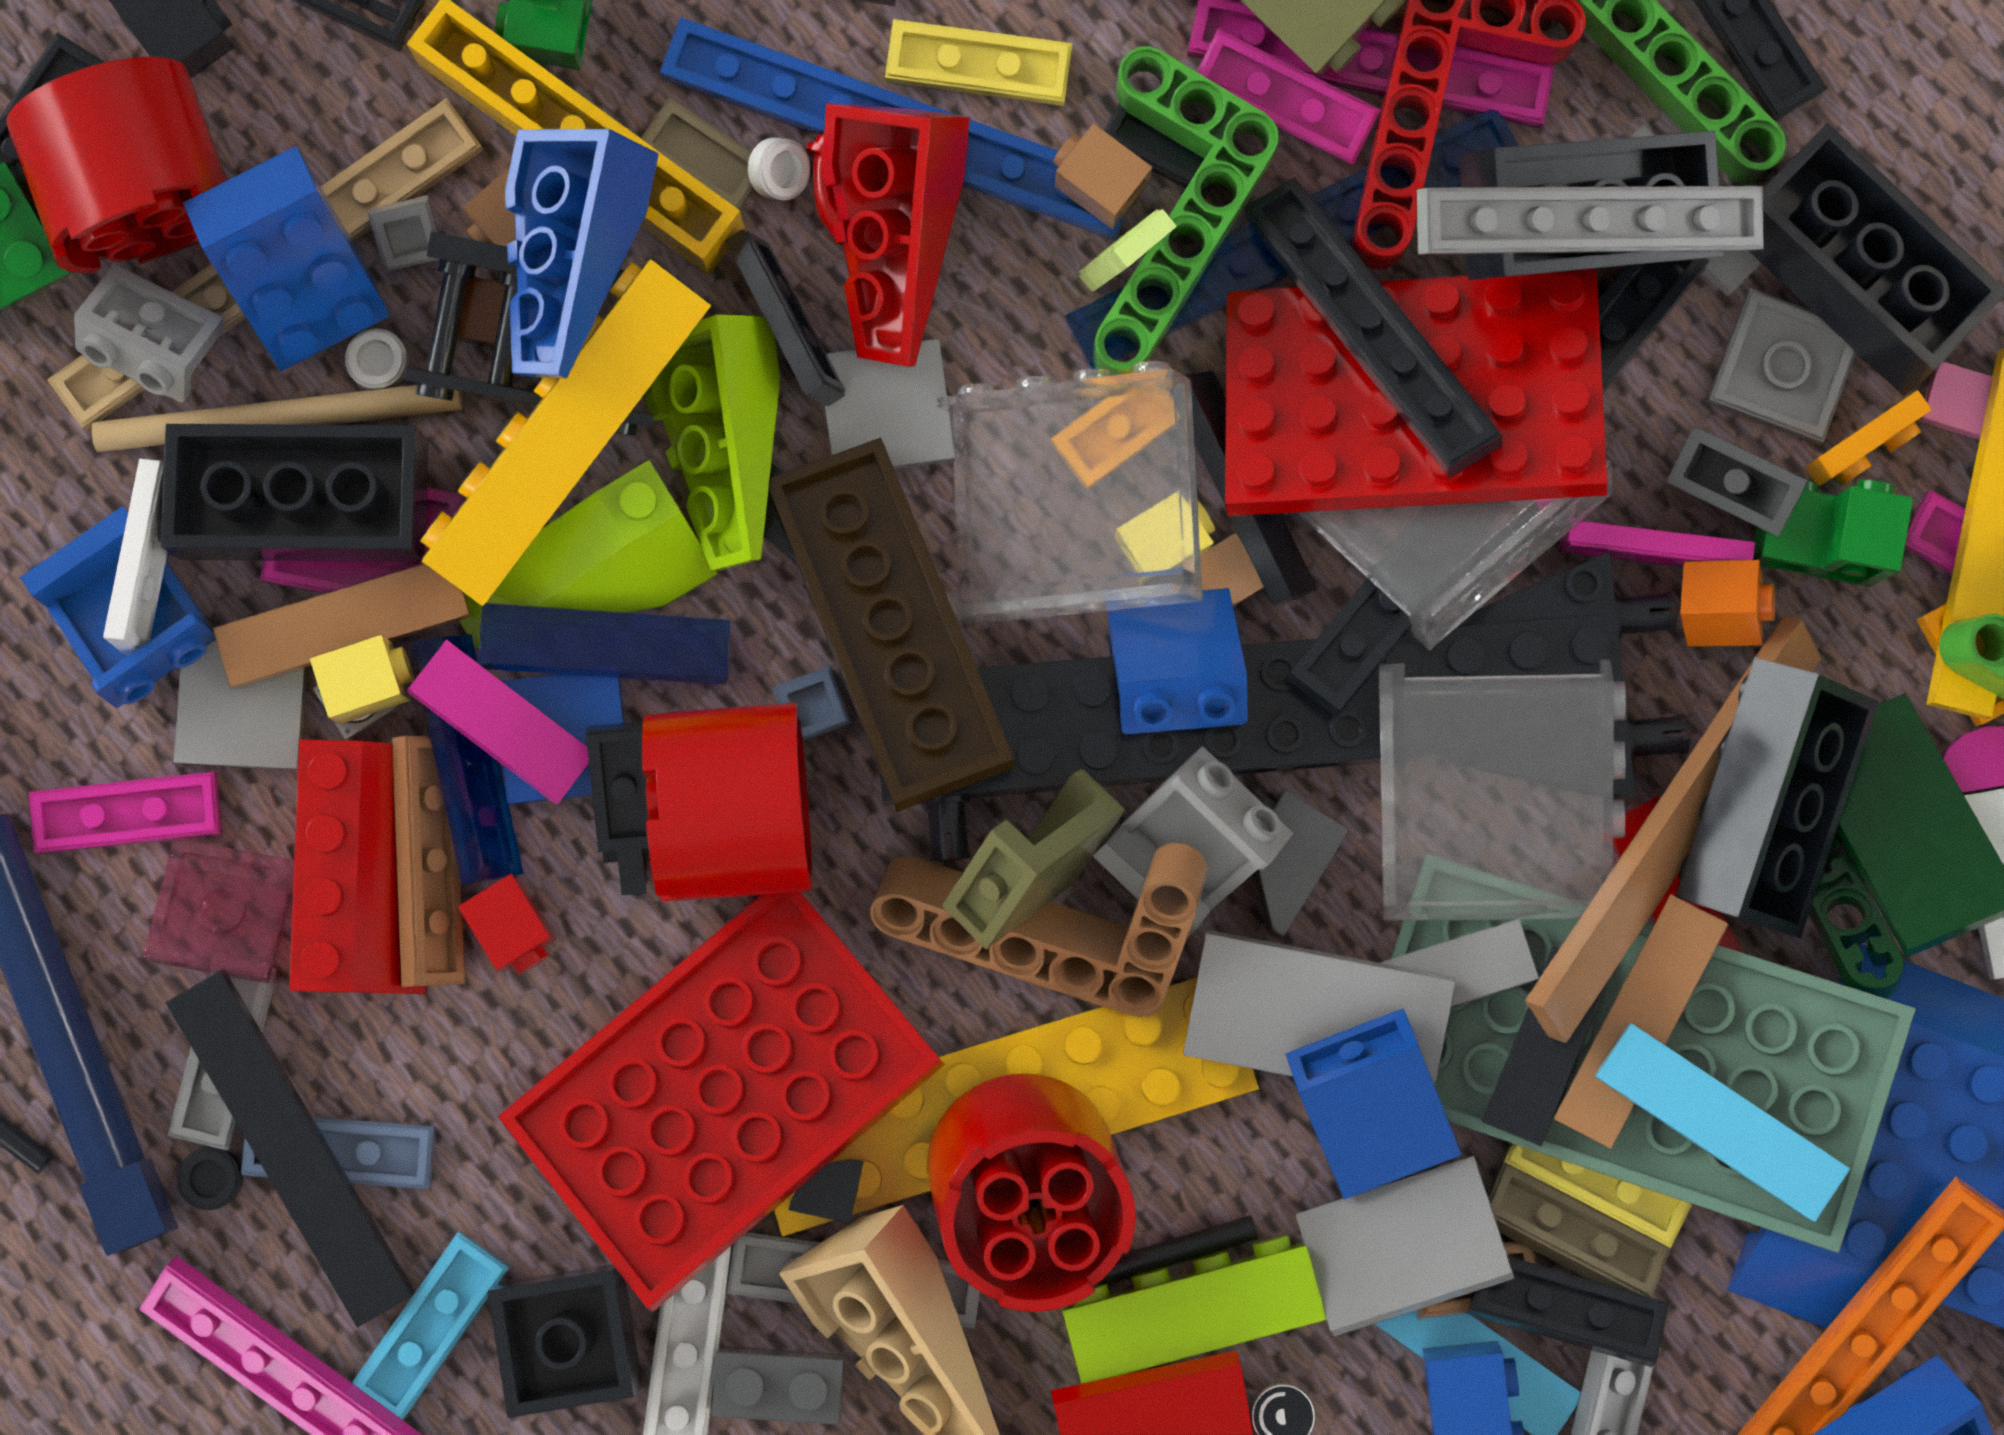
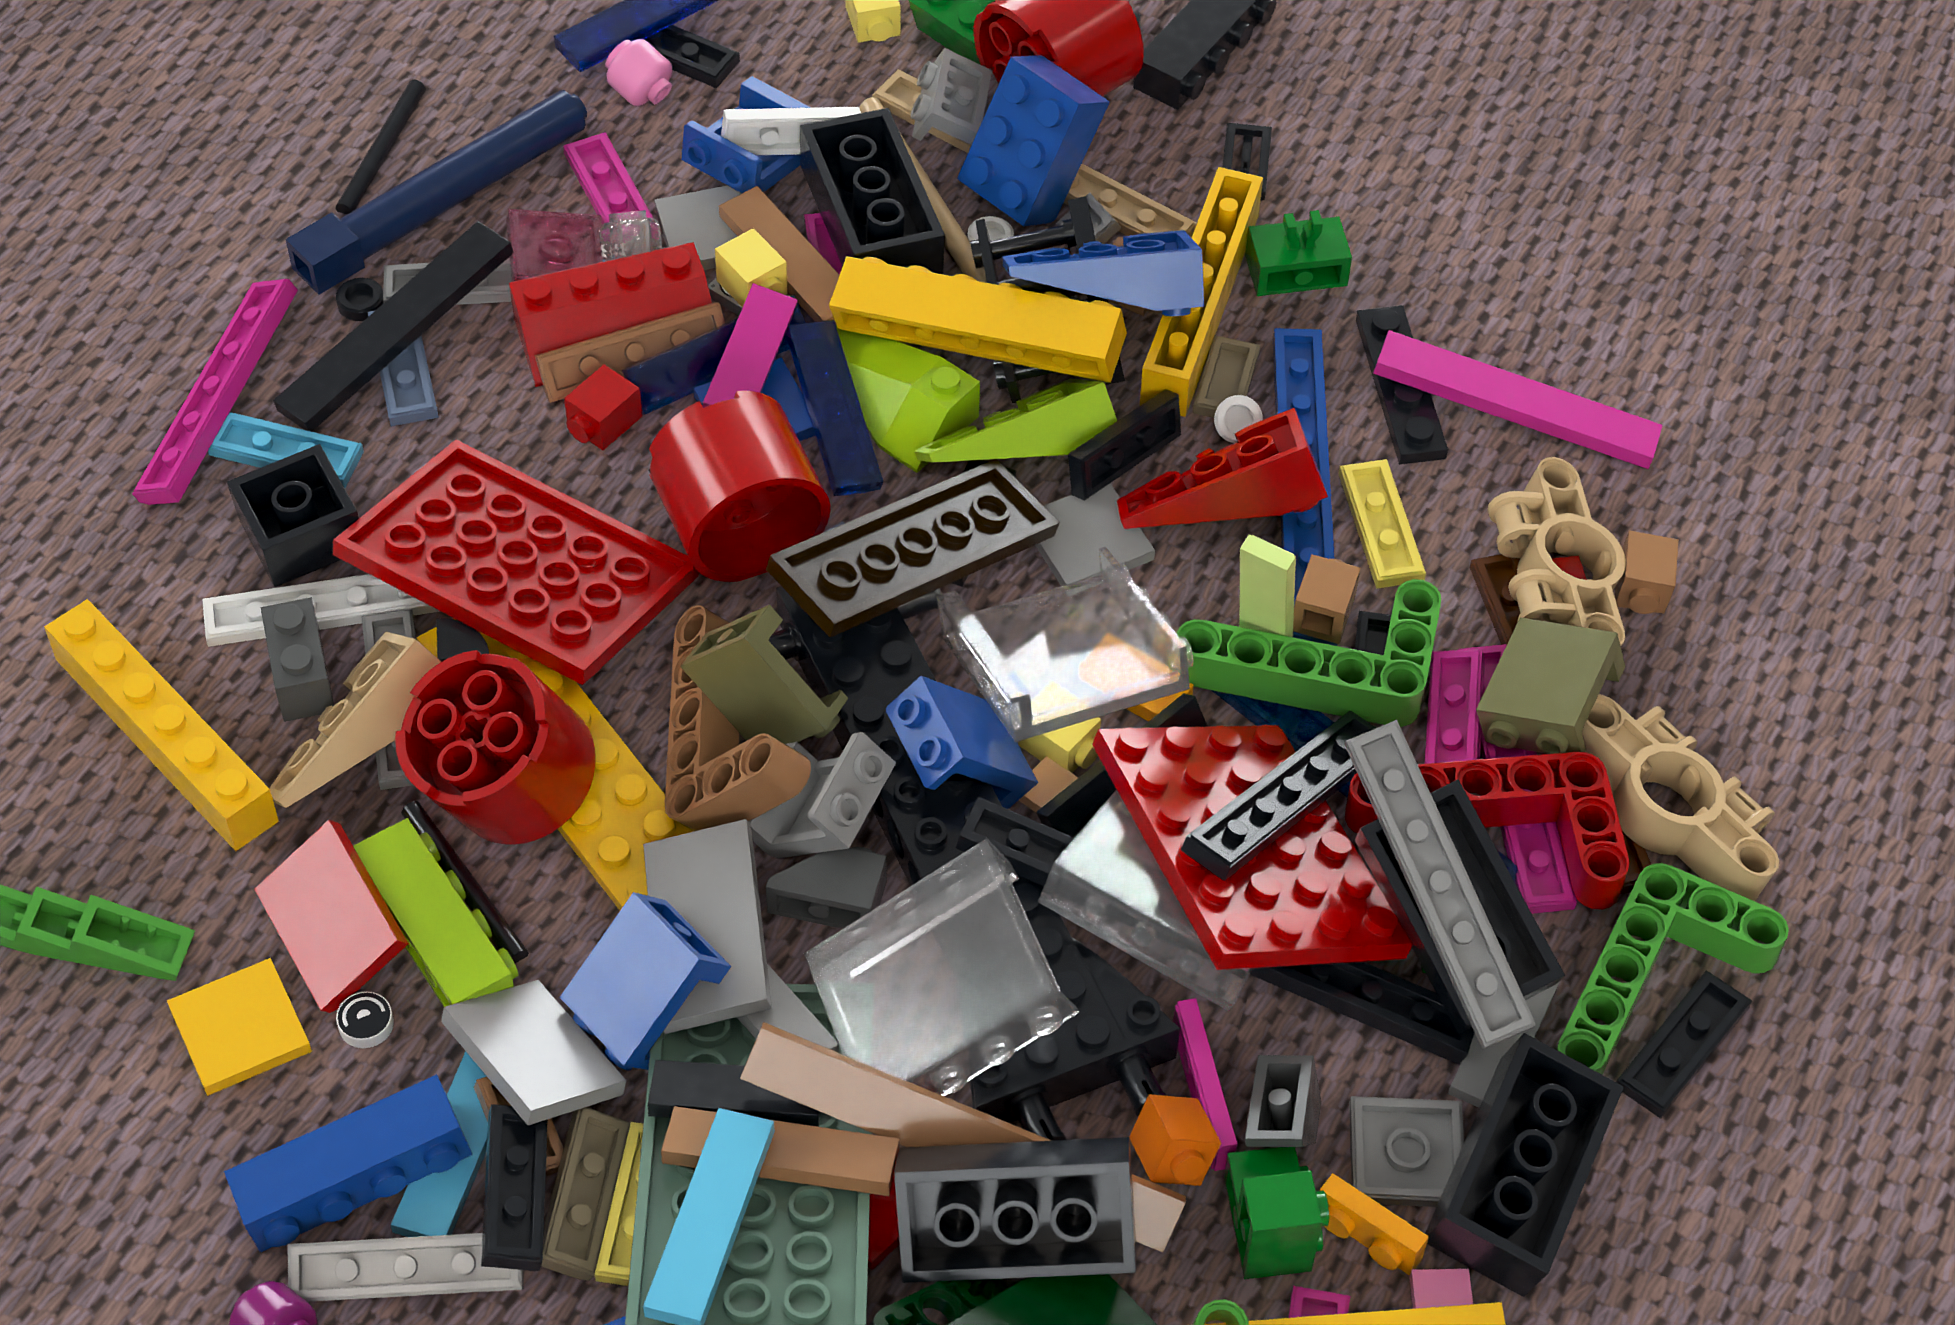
camera: 75 degrees right, 30 degrees down
(251, 815) = (629, 235): none -> clear head

